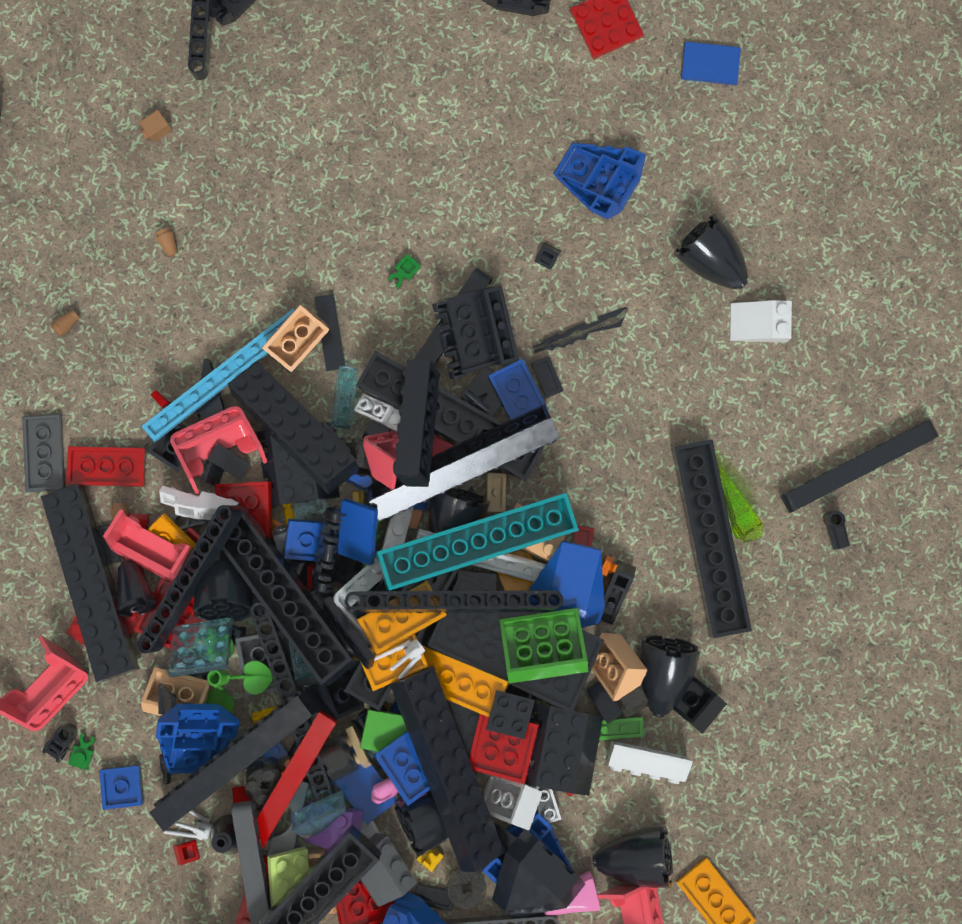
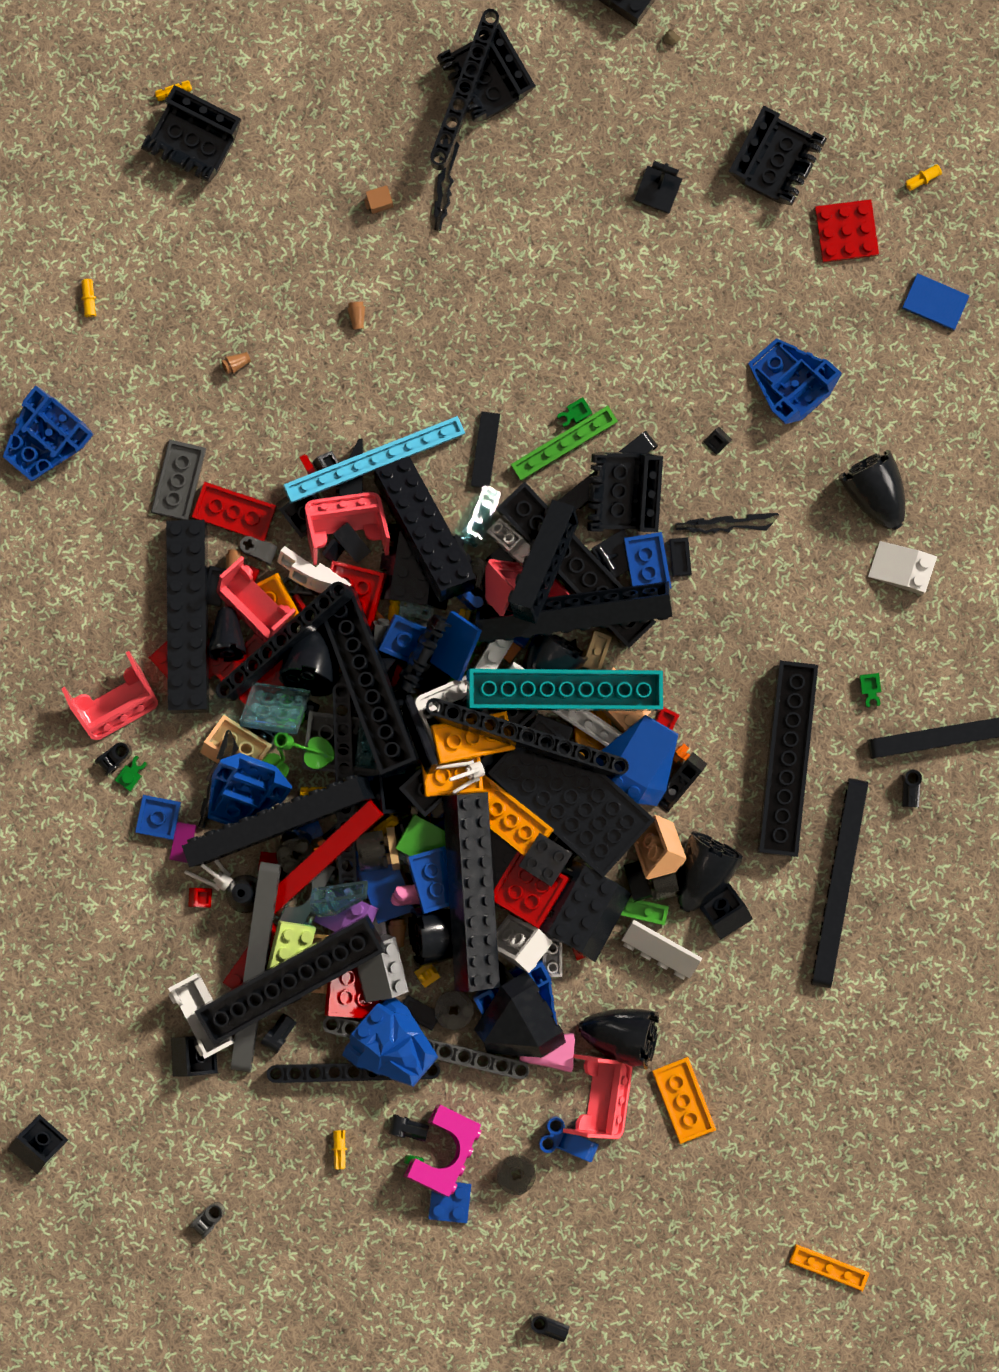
camera: 20 degrees right, 0 degrees up
(142, 495) = (261, 549): none -> dark grey piece
(150, 794) = (182, 834): none -> magenta tile
(178, 389) = (325, 460): none -> black slope
(213, 95) = (443, 188): none -> black sword
(296, 337) = (453, 445): light nougat slope -> none
(347, 722) = (390, 821): none -> yellow axle
(388, 825) = (397, 928): none -> medium nougat cone
(403, 303) = (564, 443): none -> bright green plate
(417, 35) = (659, 187): none -> black plate
(543, 645) = (596, 806): bright green slope -> none
(742, 517) = (823, 748): clear neon green wedge -> none
(766, 443) = (870, 685): none -> green plate
(799, 644) = (840, 883): none -> black beam

